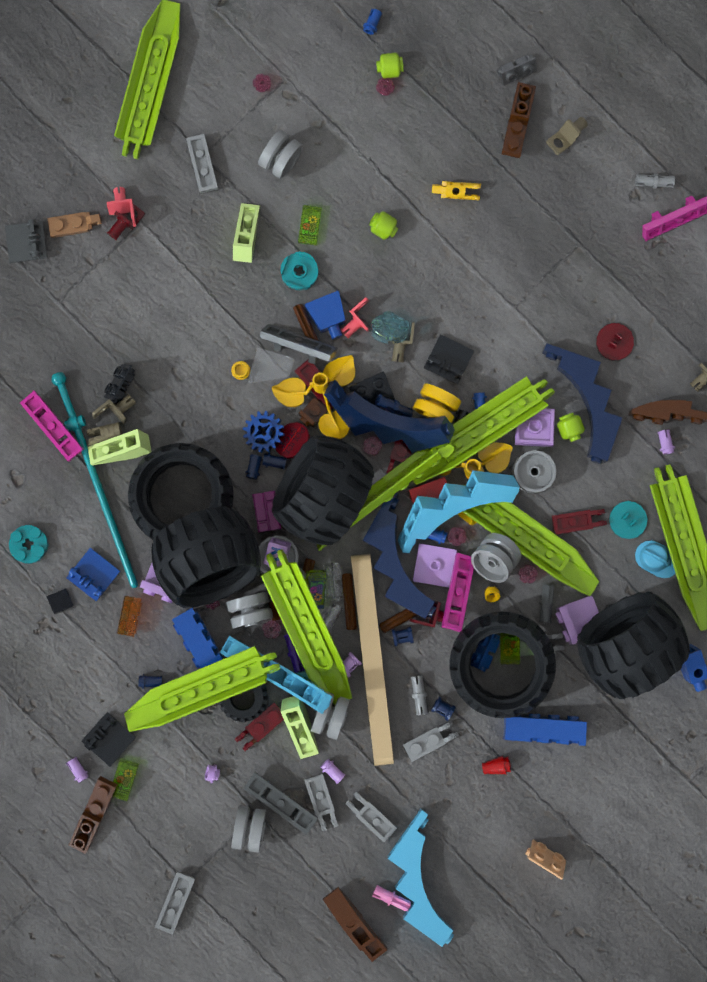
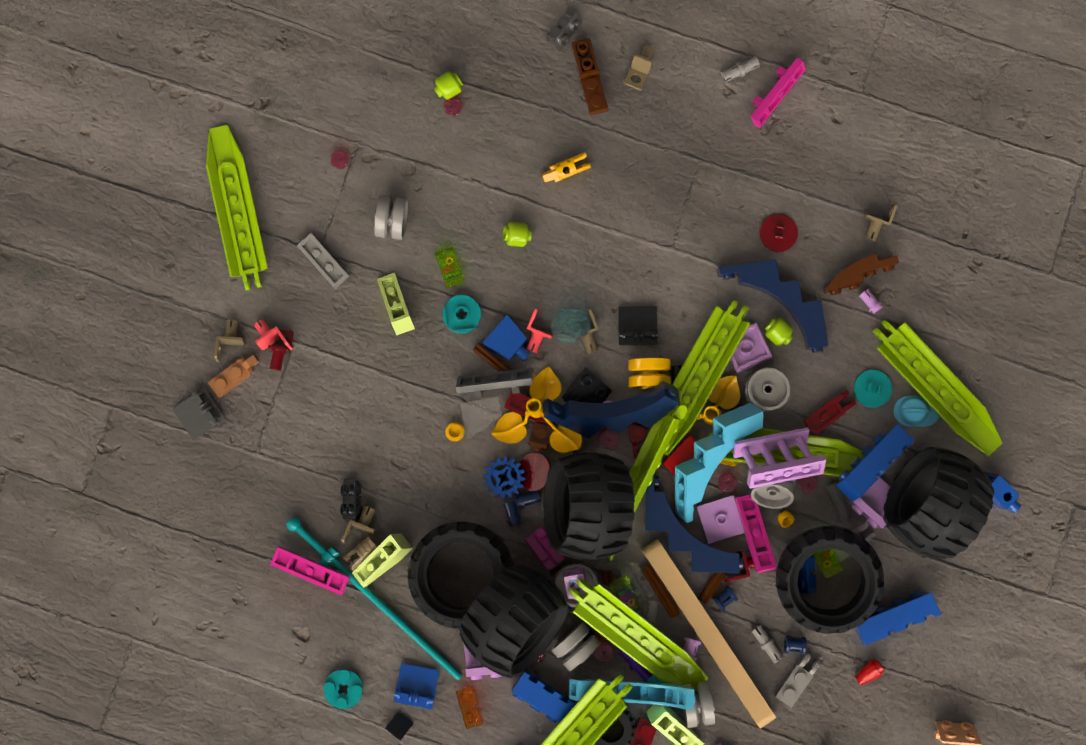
camera: 20 degrees left, 0 degrees up
(86, 190) = (229, 339): none -> dark tan bracket
(372, 22) = (411, 53): blue pin -> none
(393, 406) = (610, 394): dark blue pin -> none
(438, 535) = (711, 490): blue pin -> none
(479, 399) = (684, 348): blue pin -> none
(508, 547) = (779, 472): none -> lavender fence
(595, 582) = (874, 462): none -> blue wedge

